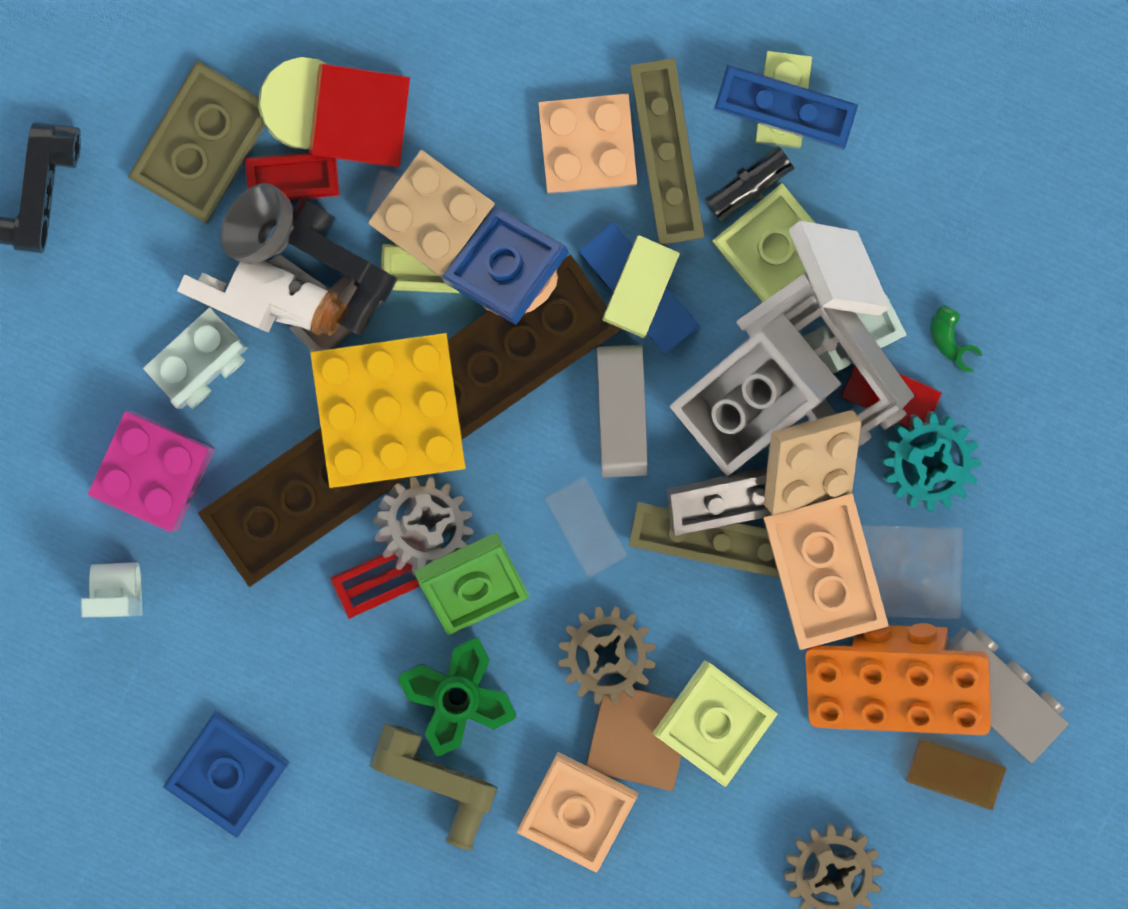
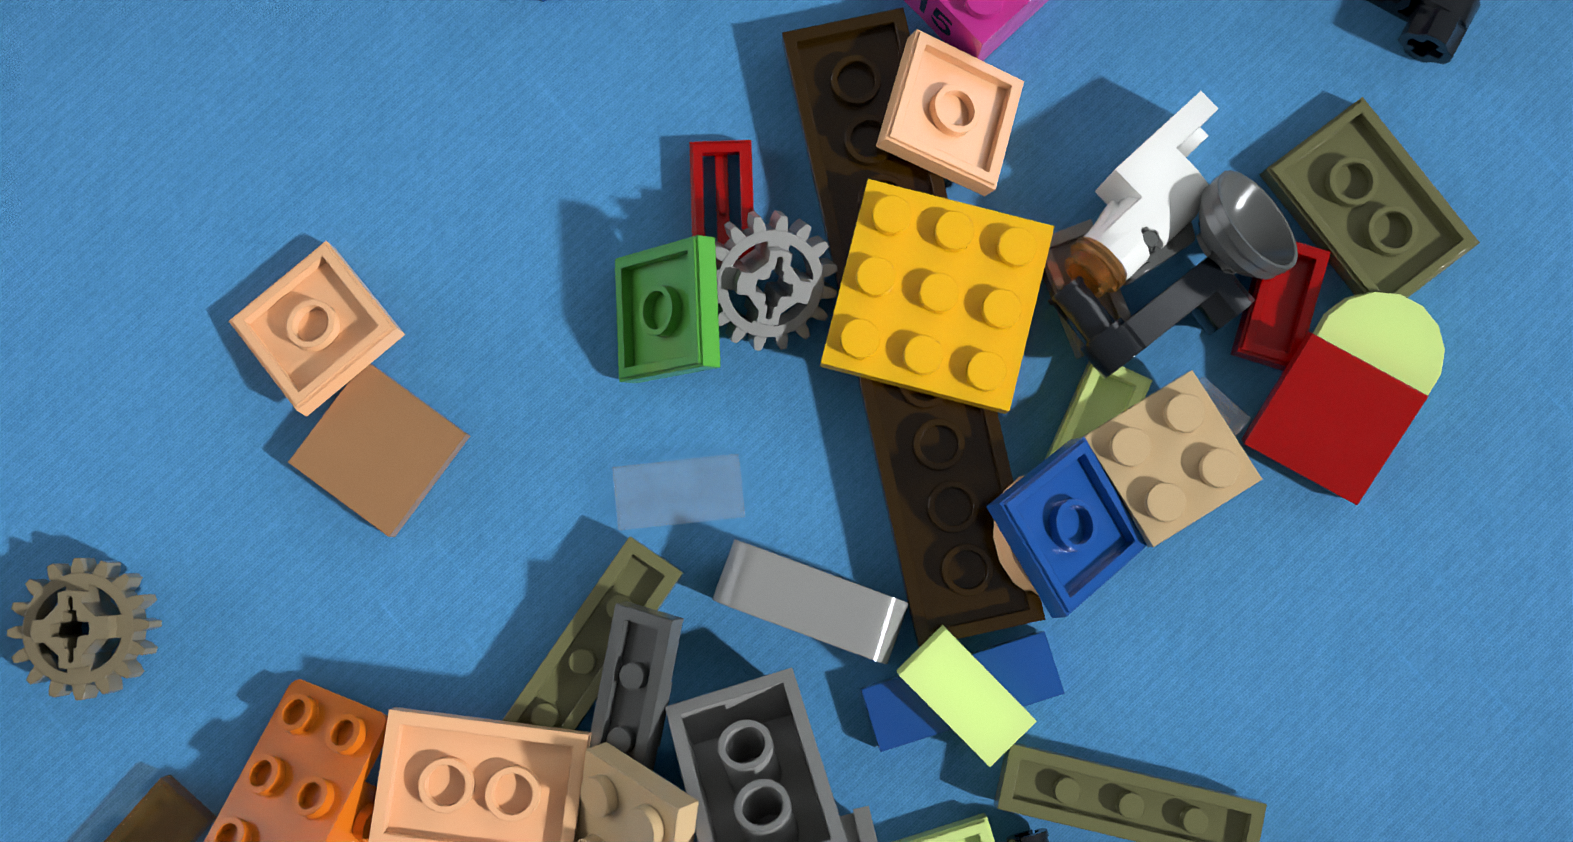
camera: 110 degrees right, 5 degrees down
(196, 360) = (1095, 89): light aqua bracket -> none
(258, 451) = (950, 113): none -> light nougat tile
(397, 758) = (480, 130): olive beam -> none
(449, 720) = (554, 212): green plant -> none
(587, 143) = (1179, 702): light nougat plate -> none
(590, 643) = (473, 465): dark tan gear -> none
(714, 723) = (349, 553): yellowish green tile -> none

